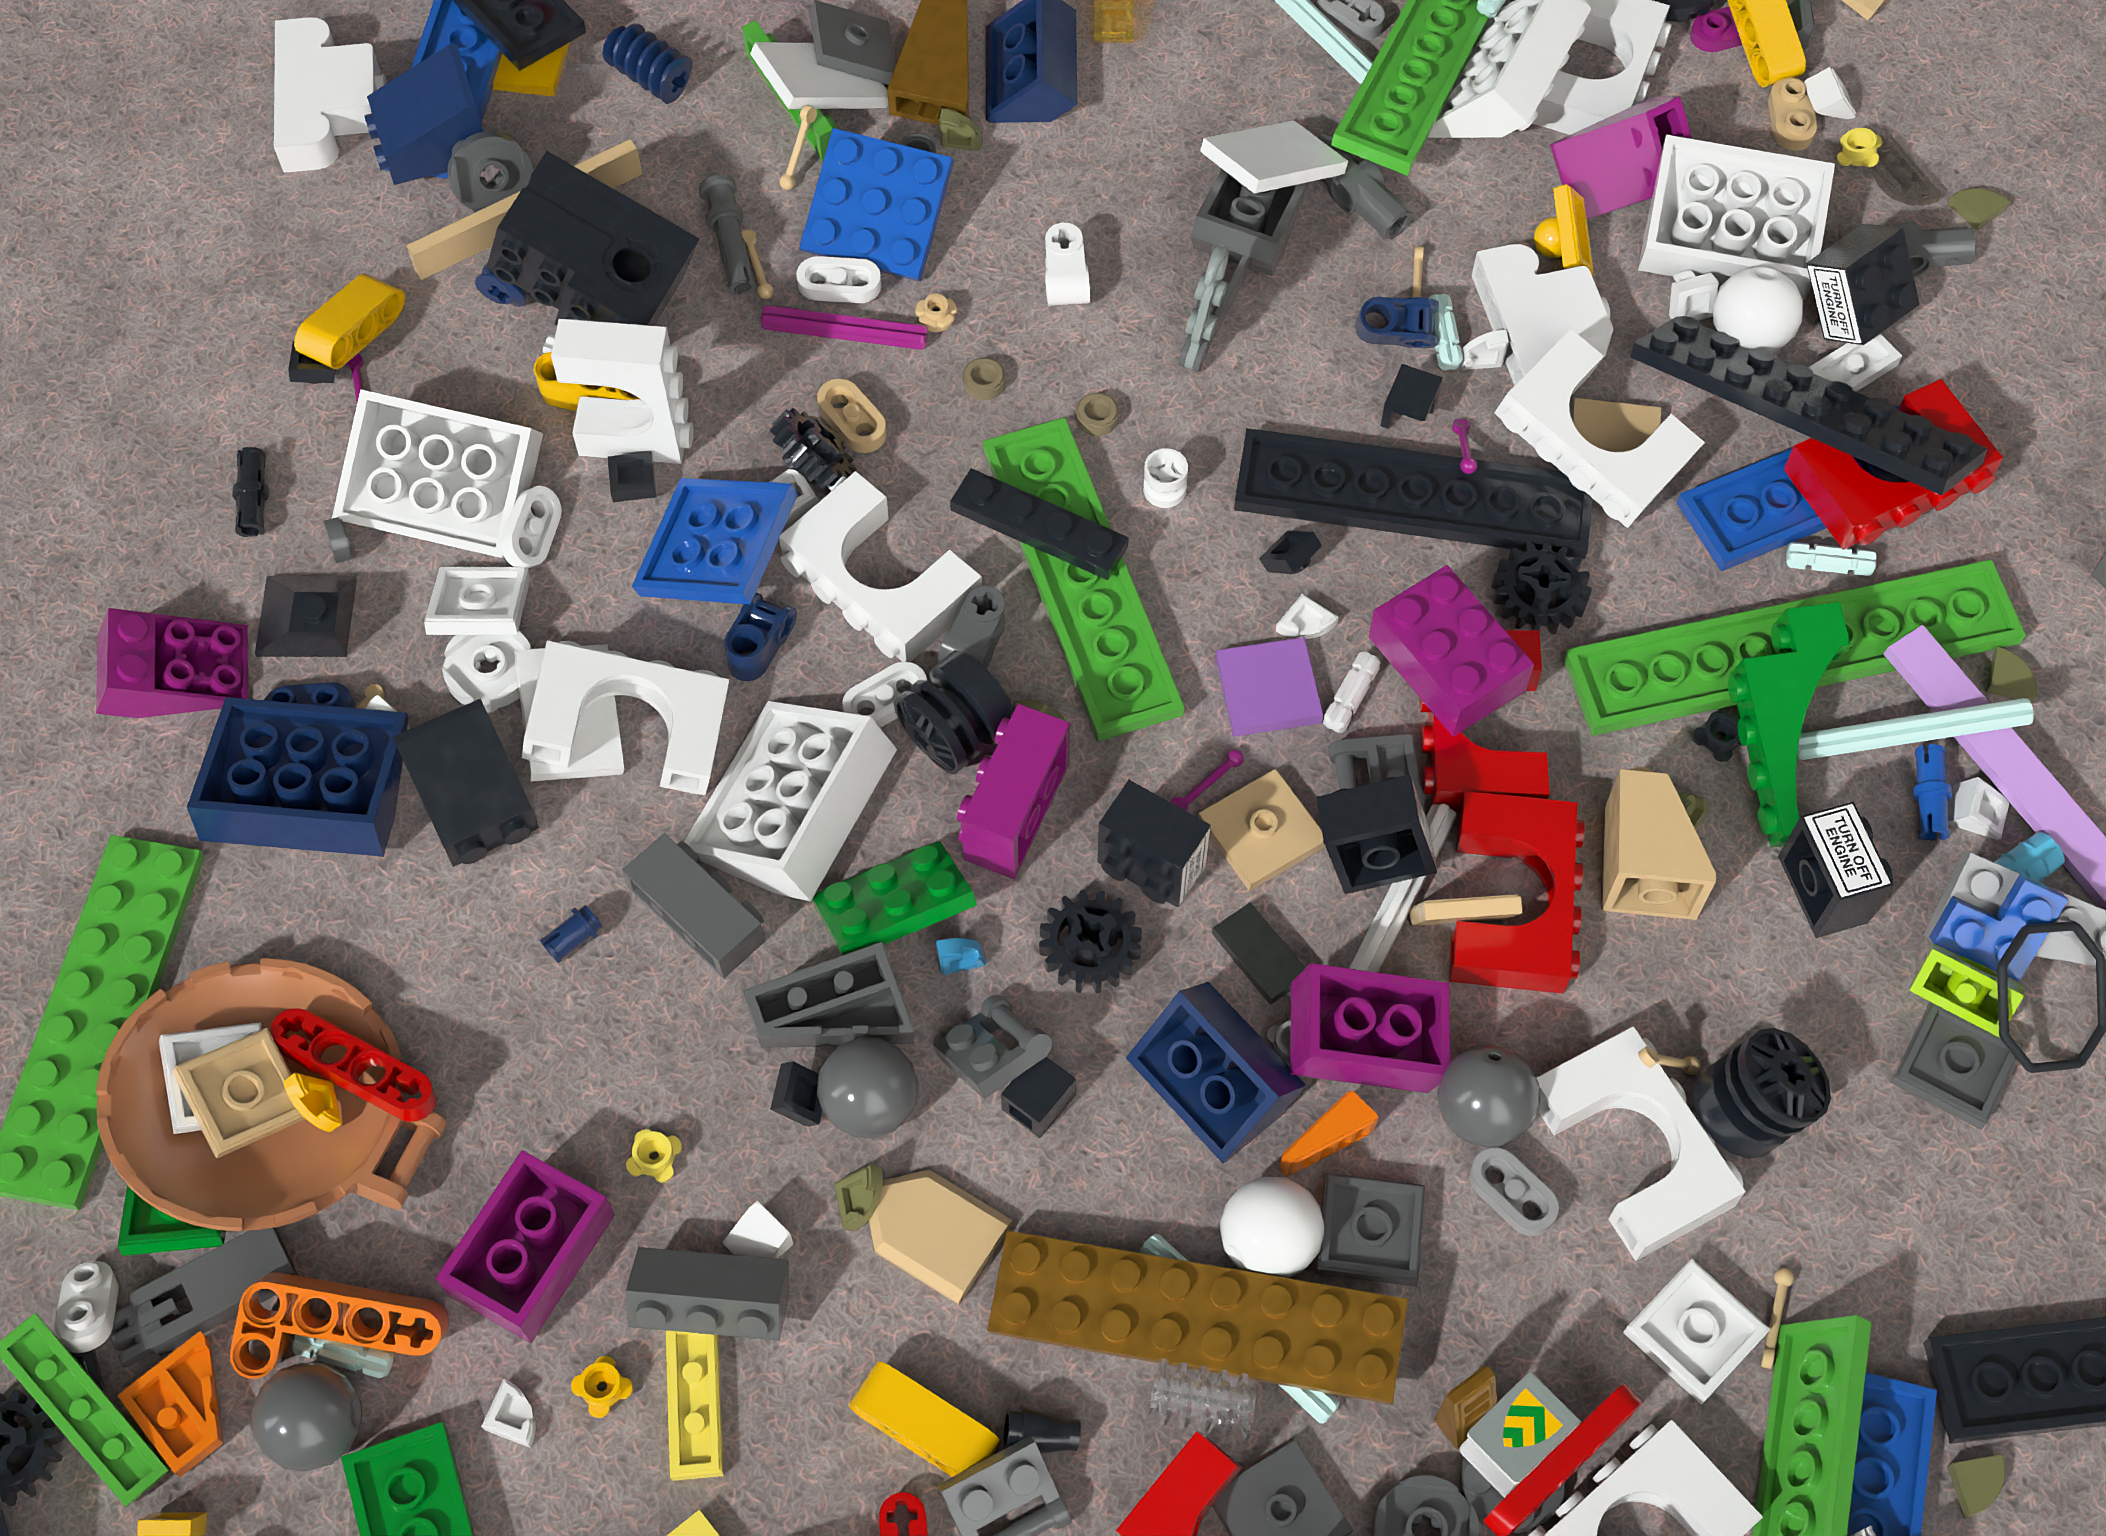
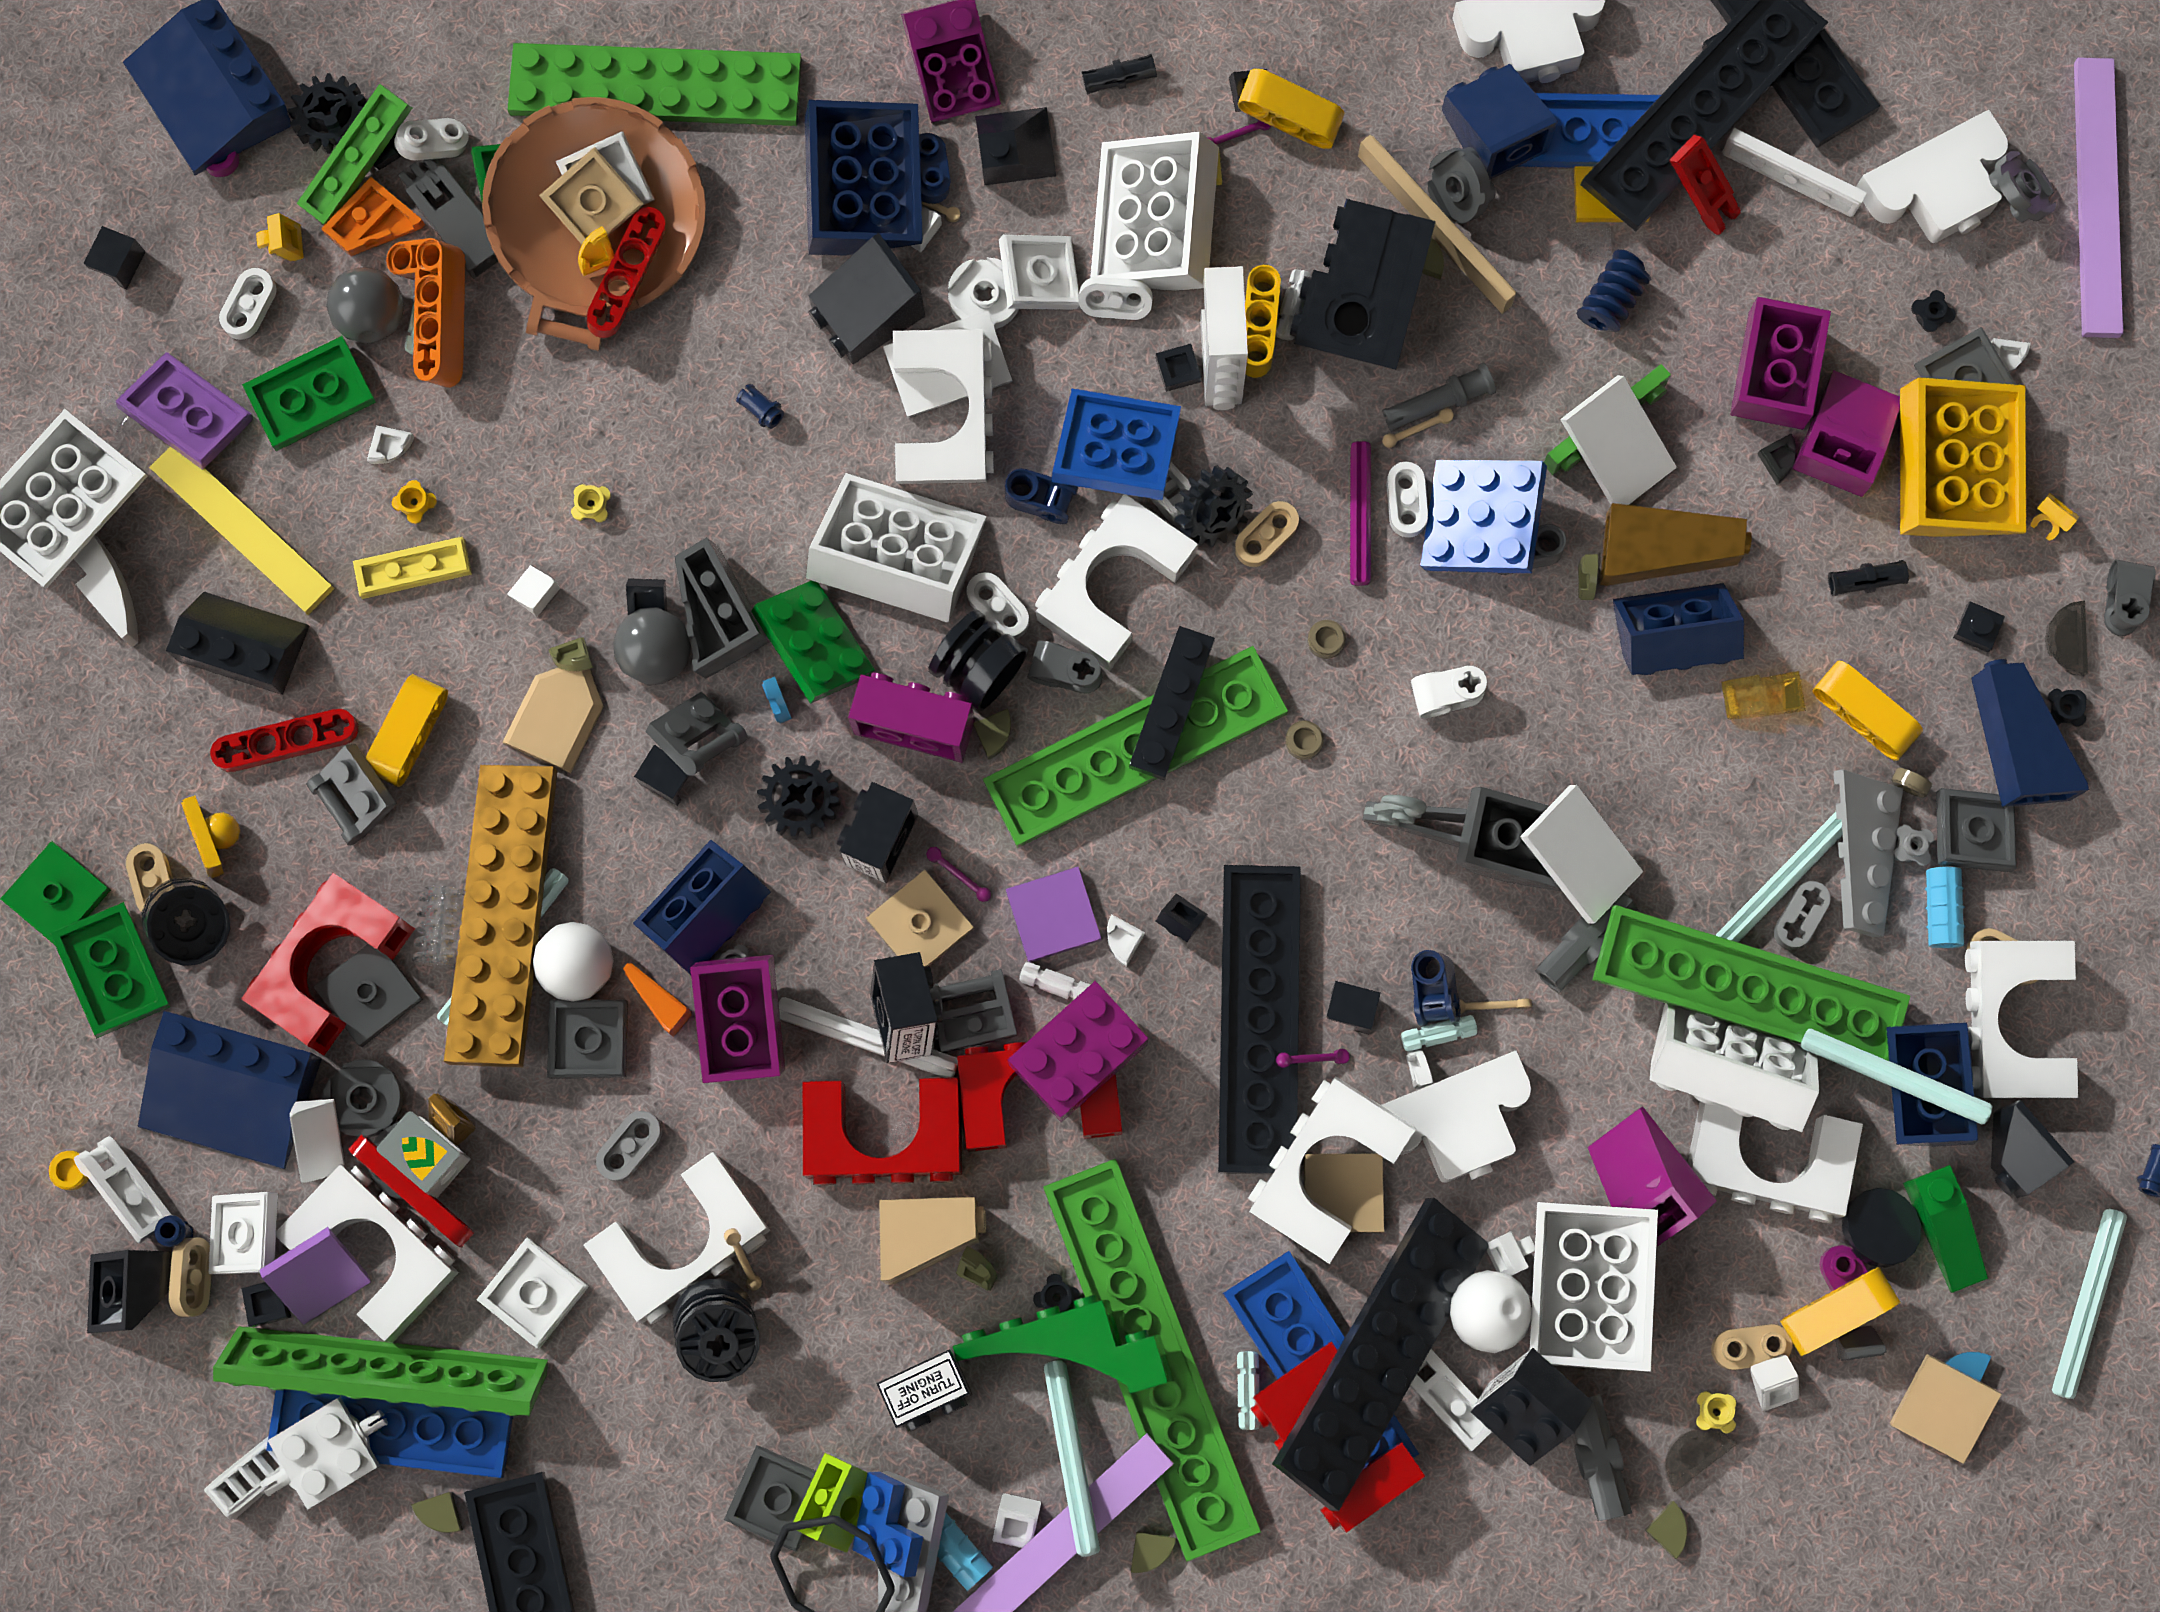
camera: 85 degrees right, 15 degrees up
(338, 539) = (1082, 152): dark grey tile -> none
(525, 1246) = (502, 425): magenta brick -> none
(695, 904) = (793, 492): dark grey brick -> none
(708, 1293) = (480, 560): dark grey brick -> none
(808, 115) = (1563, 438): tan hinge -> none
(852, 42) = (1666, 464): dark grey plate -> none
(936, 320) = (1392, 596): tan plate -> none
(1047, 1429) = (409, 813): black cone -> none
(1165, 478) = (1241, 797): white wheel -> none
(1258, 952) = (810, 933): pearl dark grey tile -> none
(1465, 909) = (850, 1086): tan tile -> none
(1489, 1095) = (694, 1116): dark grey piece -> none
(1537, 583) = (1195, 1134): black gear -> none
(1568, 232) = (1559, 1135): yellow tile -> none
(1783, 1279) = (584, 1361): tan hinge -> none
(1932, 792) = (1022, 1479): blue pin -> none

